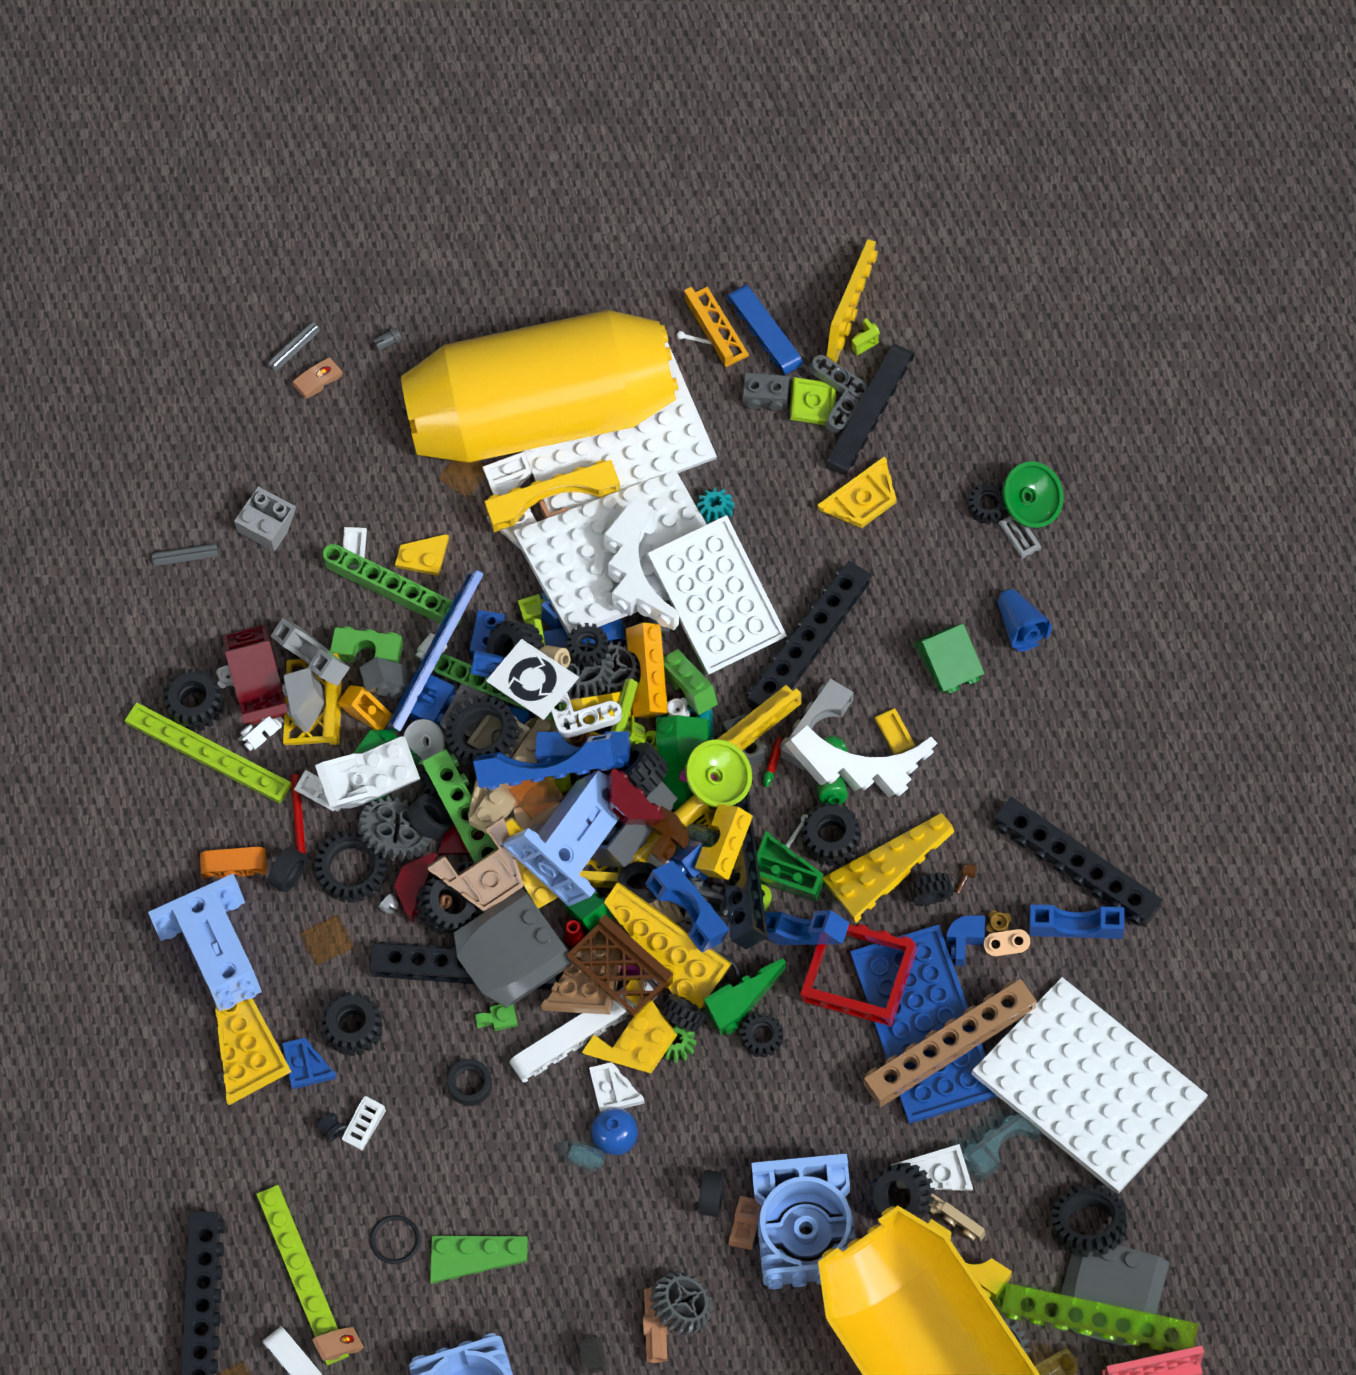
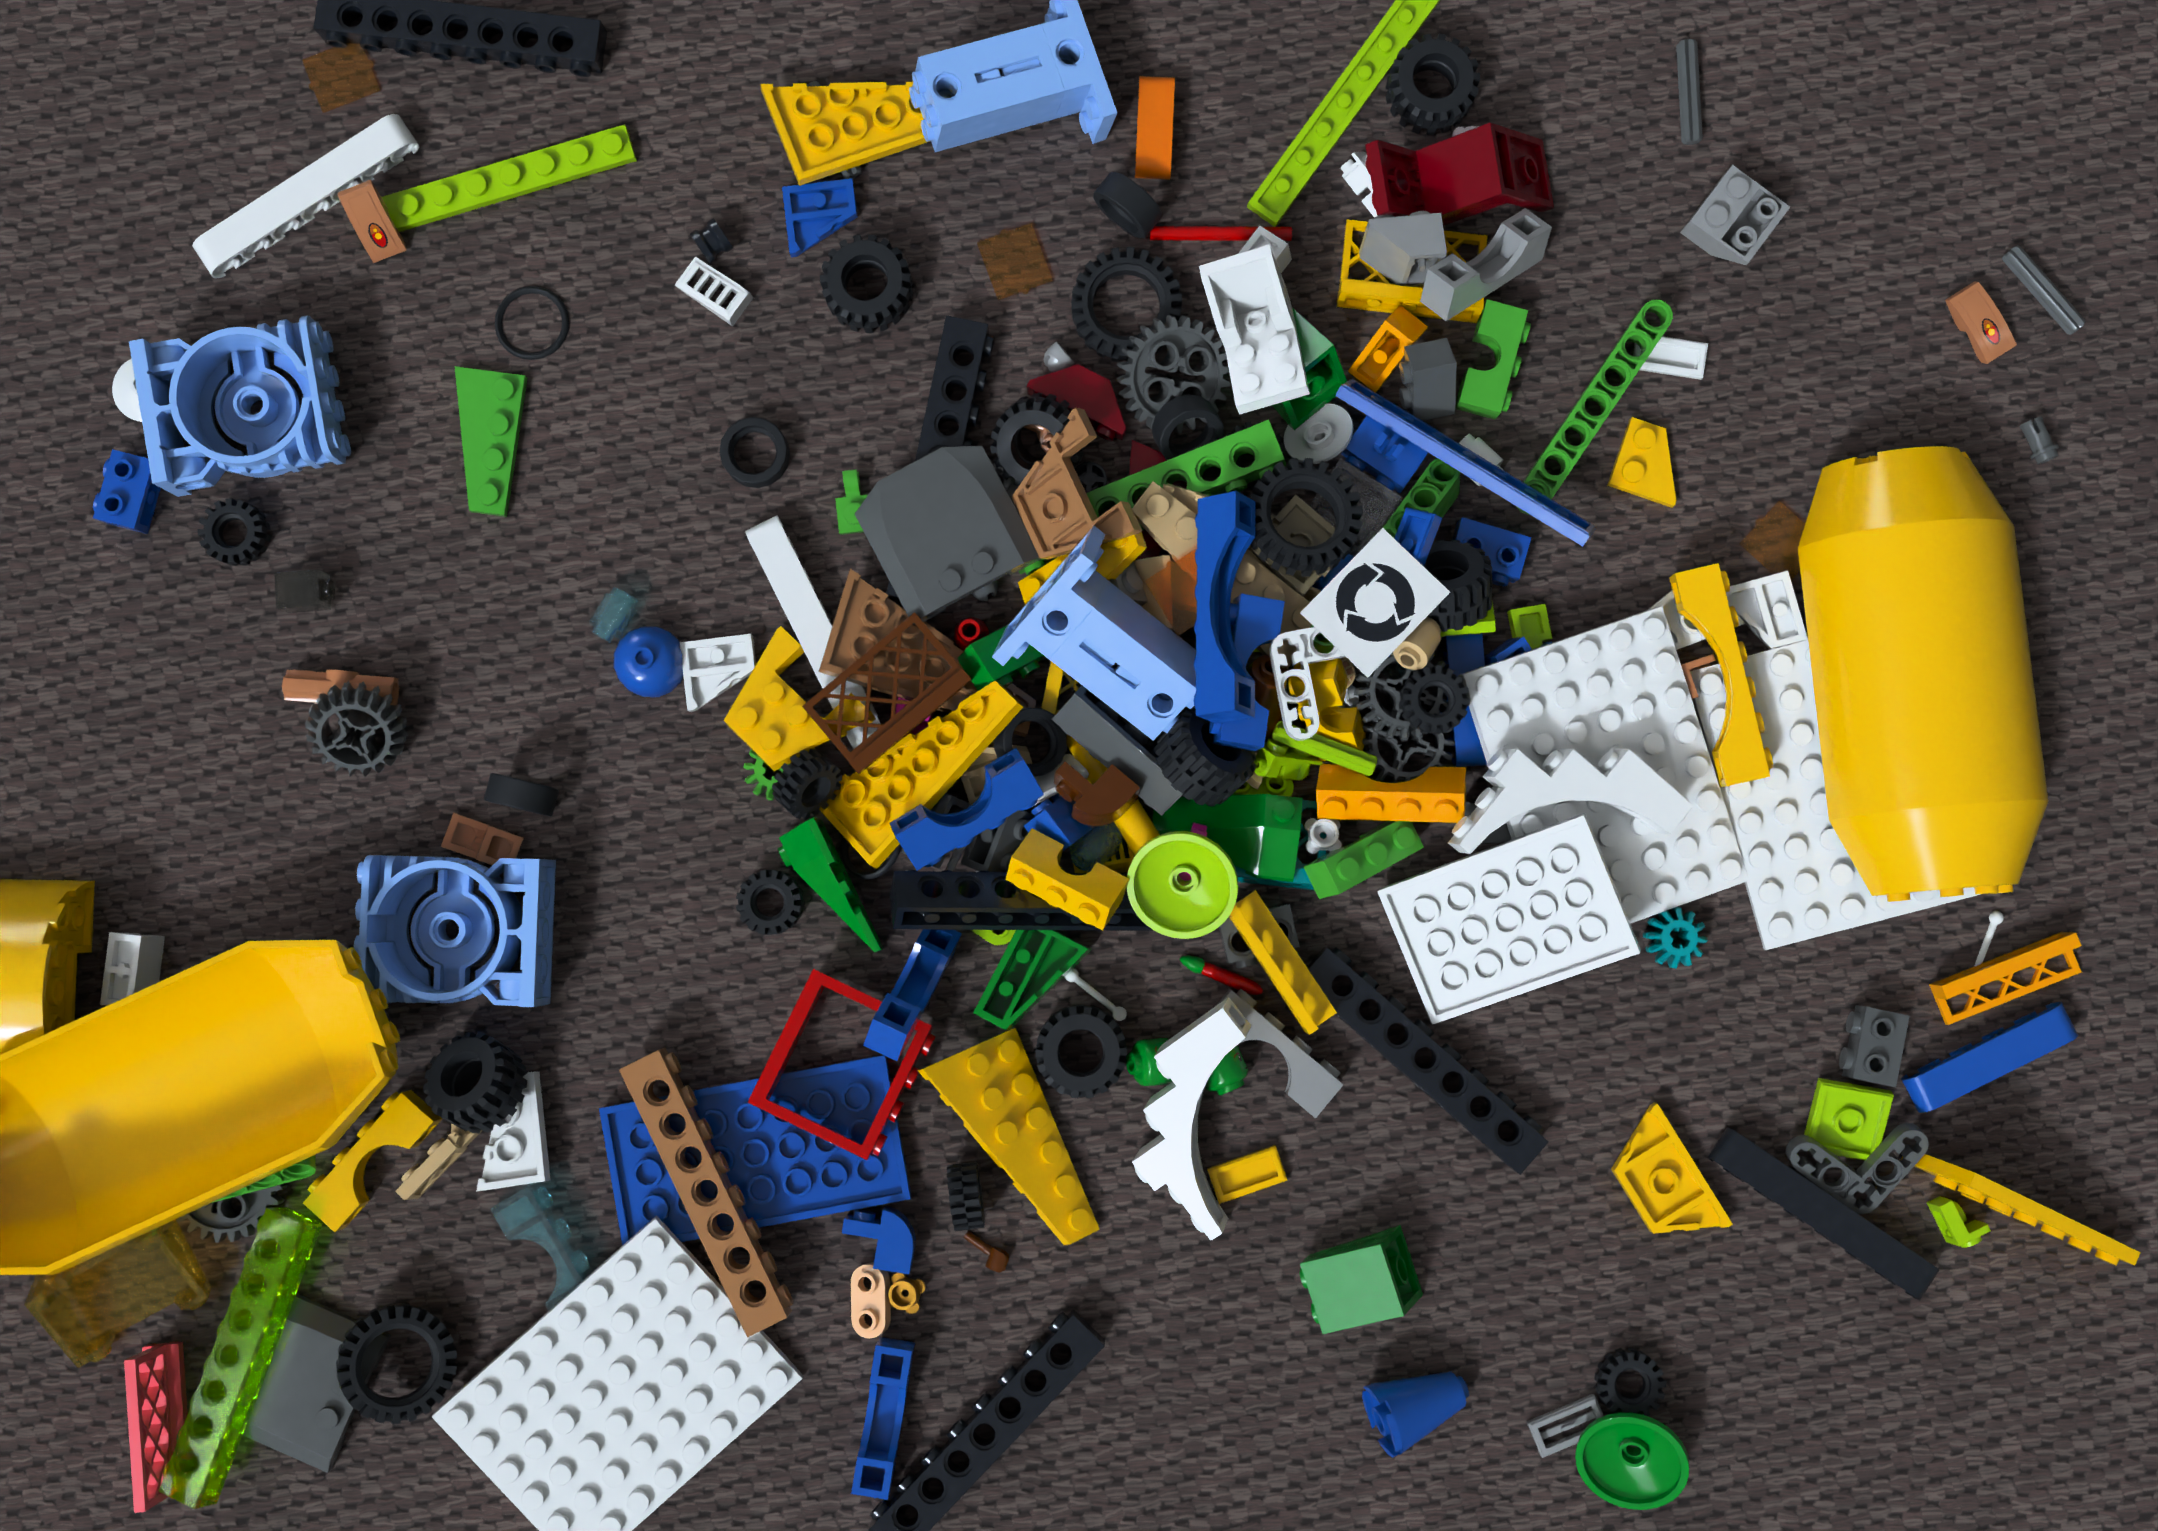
camera: 95 degrees right, 20 degrees up
(629, 802) = (1140, 735): dark red slope -> none

